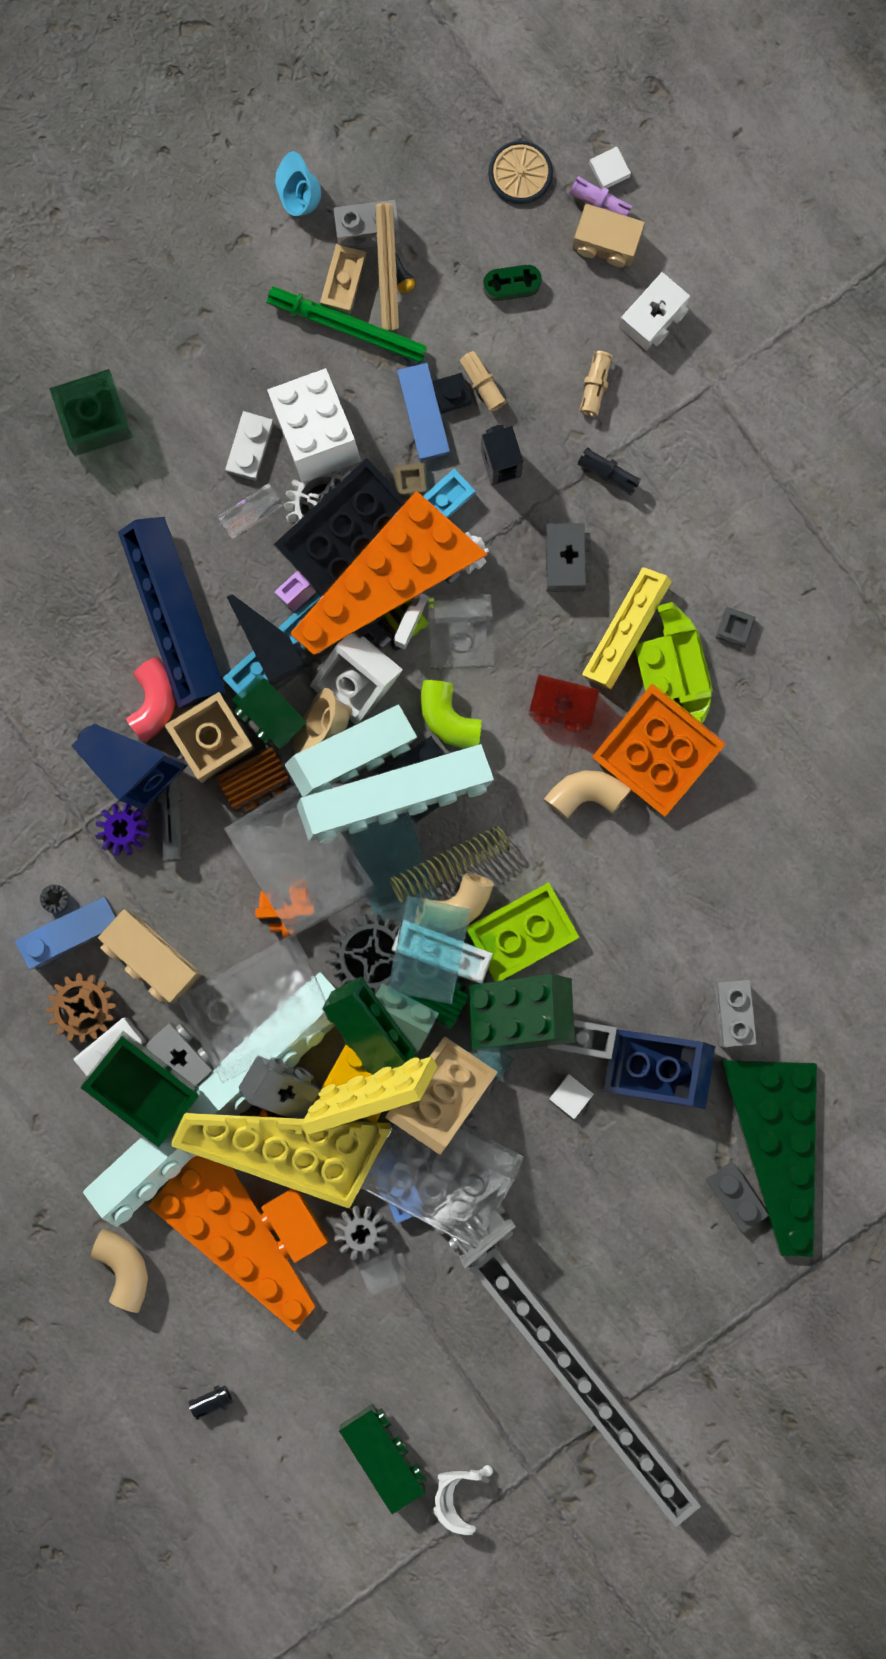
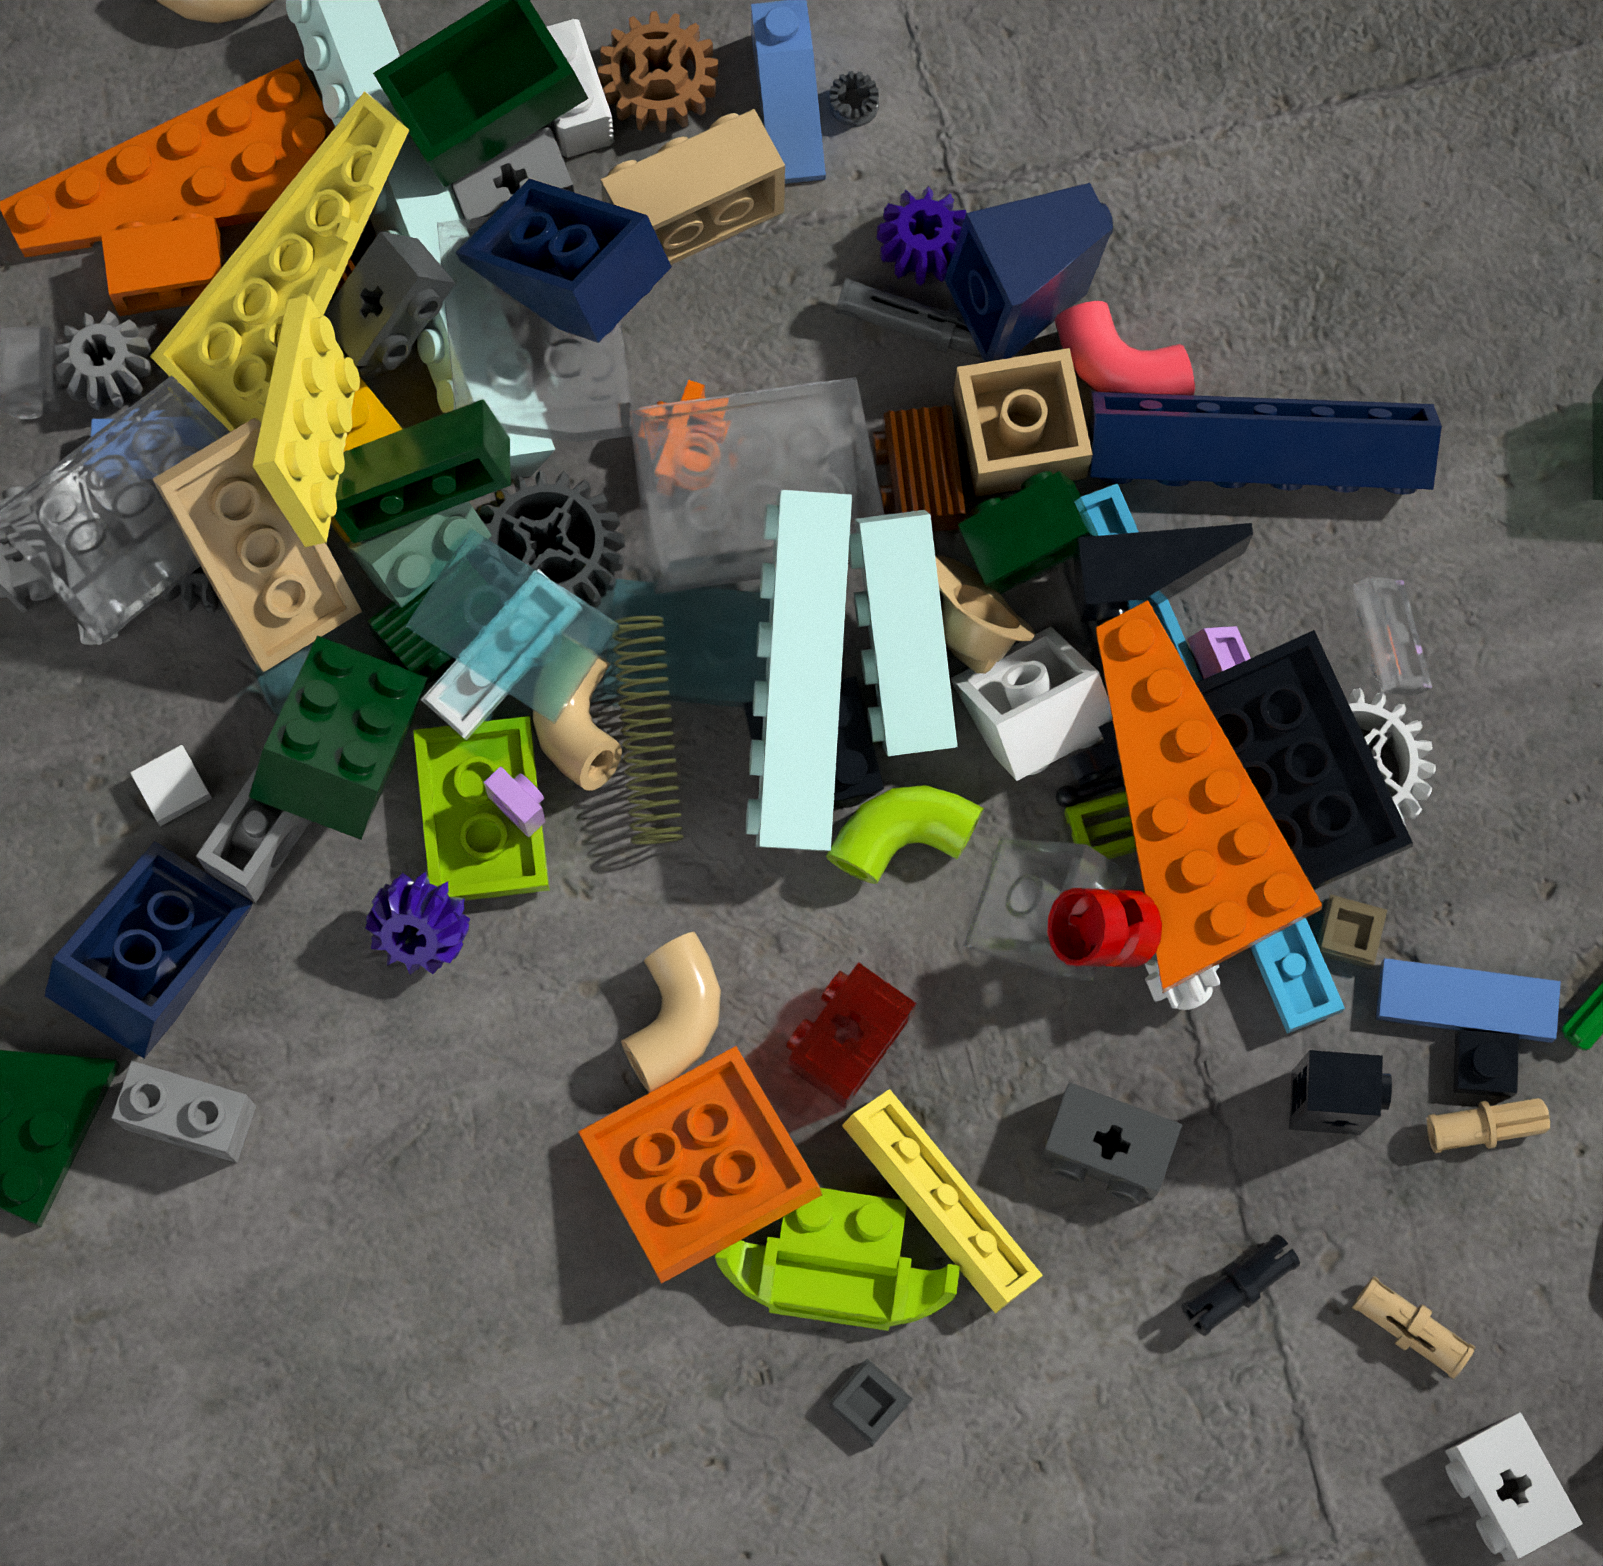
camera: 110 degrees right, 10 degrees down
(221, 1002) = (568, 257): none -> dark blue slope
(249, 446) = (1510, 683): white plate -> none
(314, 425) = (1505, 788): white piece -> none
(410, 621) = (1095, 822): white tile -> none
(469, 592) = (1104, 927): none -> red wheel
(514, 912) = (516, 799): none -> lavender plate
(596, 937) = (417, 923): none -> dark purple gear

